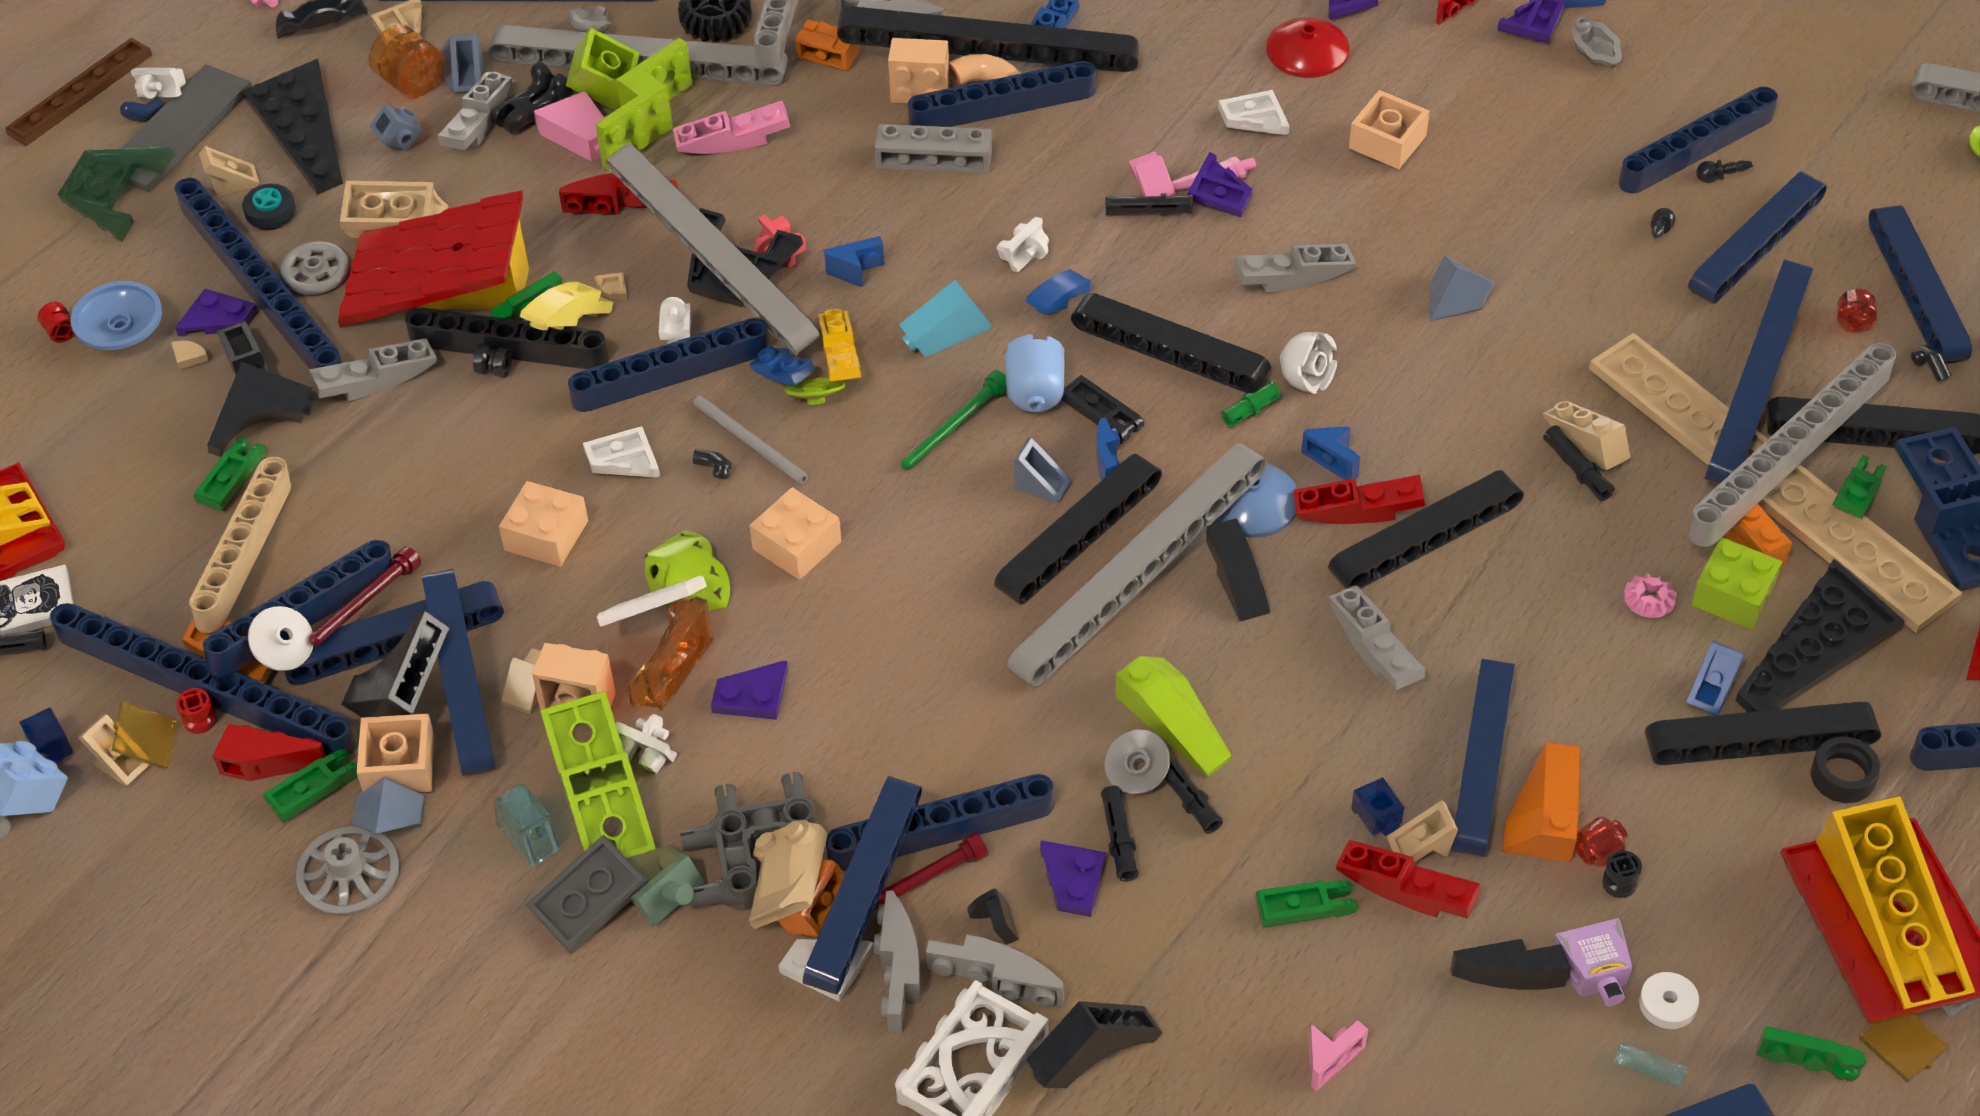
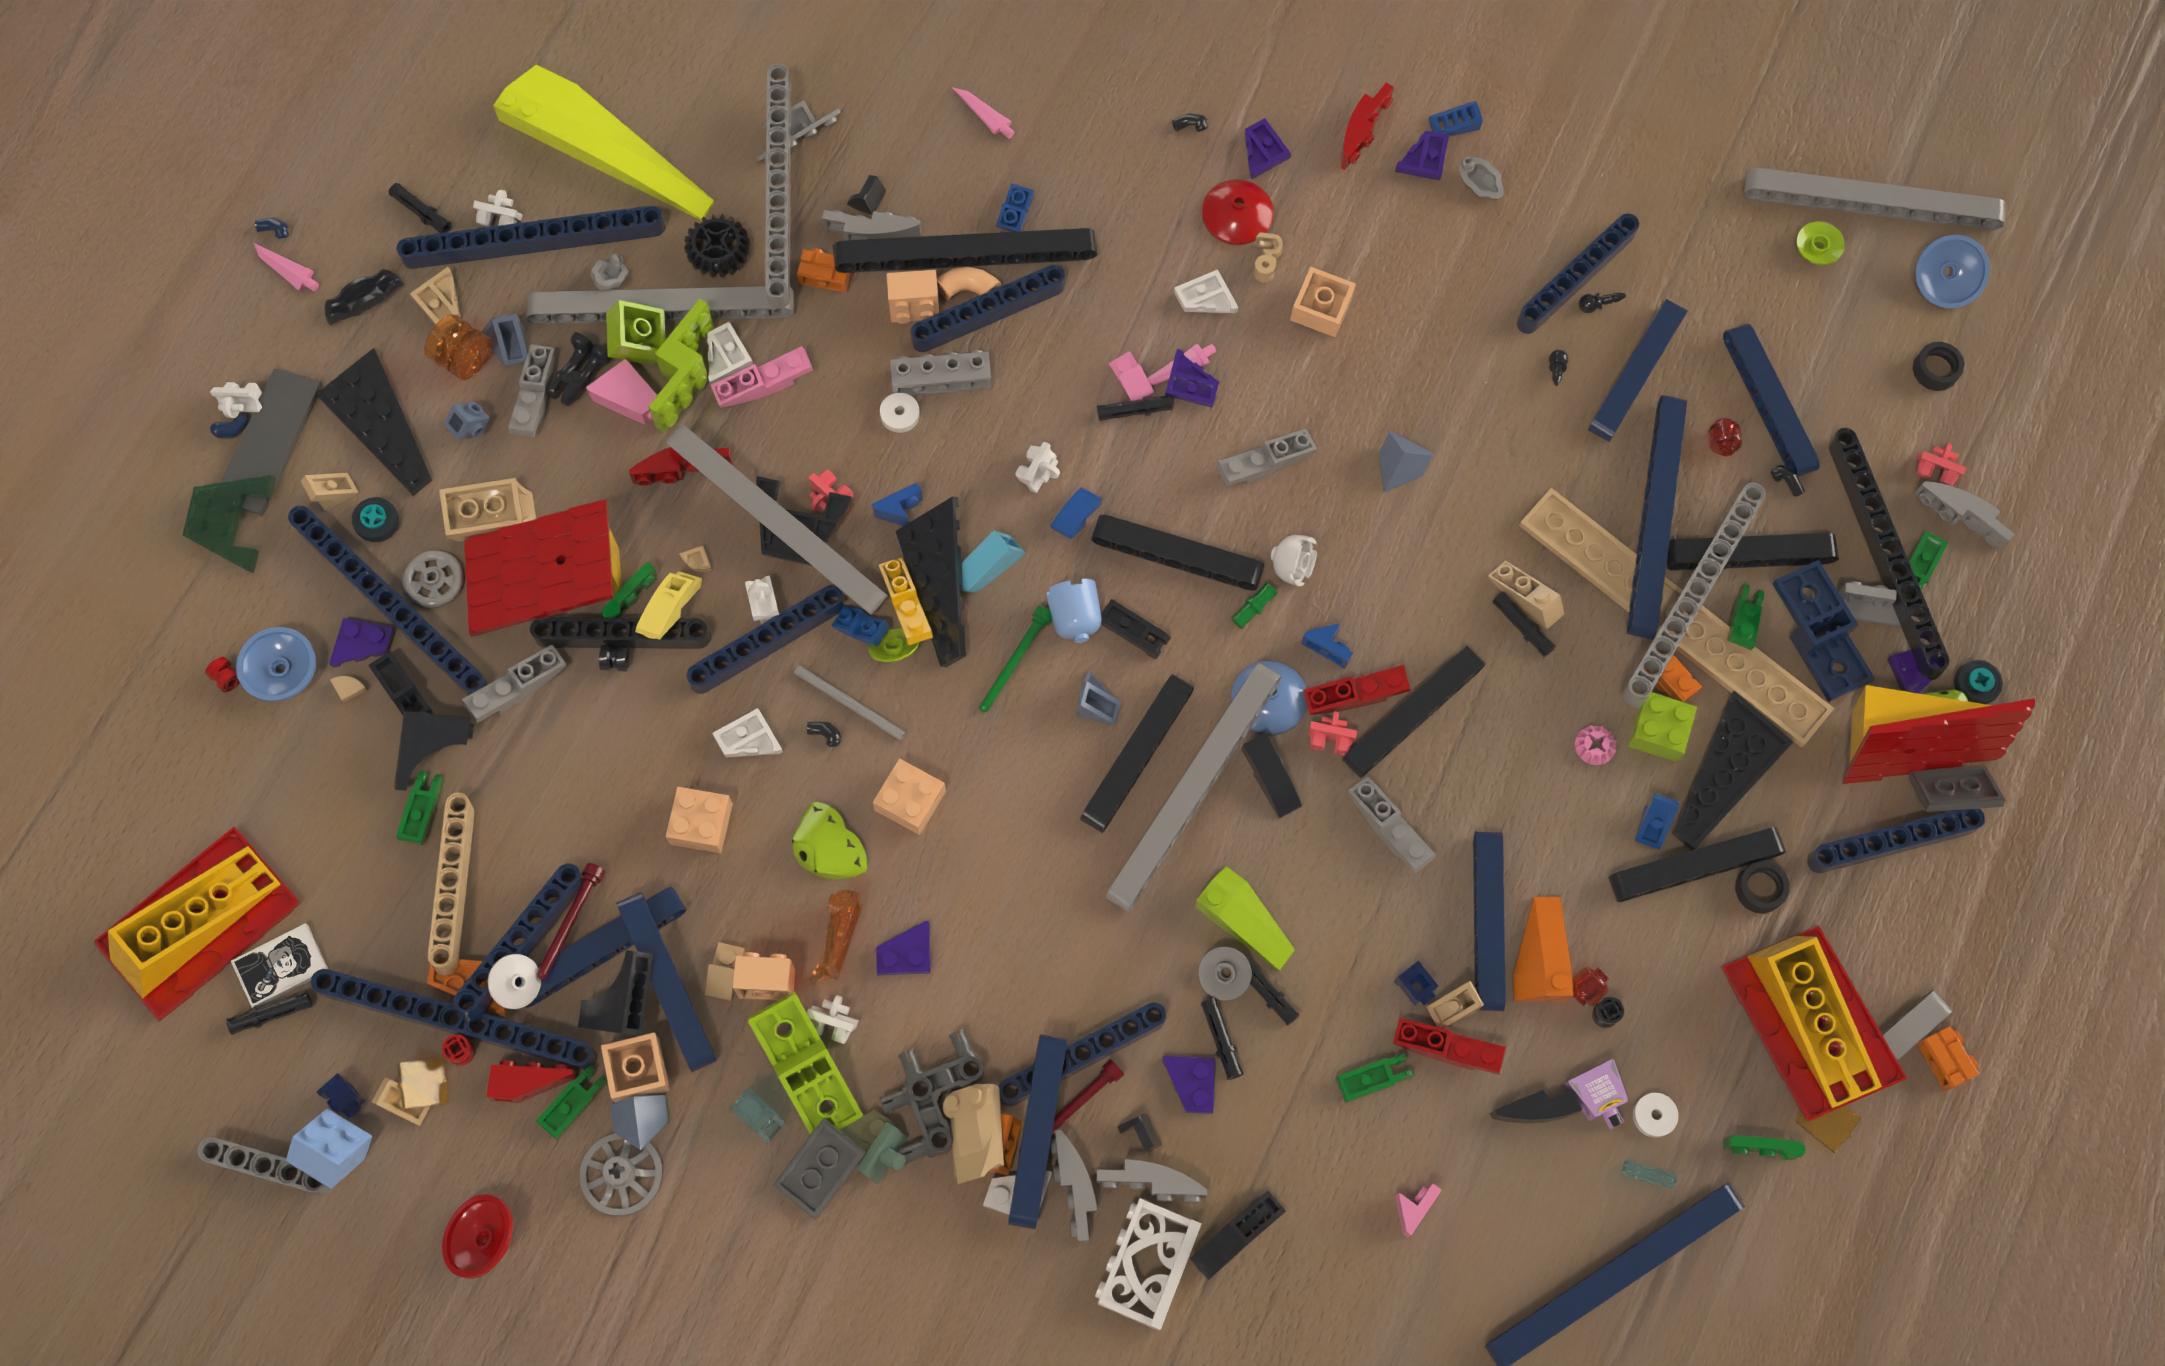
camera: 15 degrees left, 20 degrees up
(78, 91) = (165, 413): reddish brown tile -> none
(156, 899) = (477, 1236): none -> red dish
(651, 600) = (810, 891): white tile -> none
(696, 101) = (725, 353): none -> white wing
(878, 180) = (897, 402): none -> white piece
(880, 319) = (936, 573): none -> black wing
(1107, 448) = (1144, 669): blue slope -> none
(1318, 537) = (1331, 730): none -> coral hips
(1330, 89) = (1266, 264): none -> tan leg

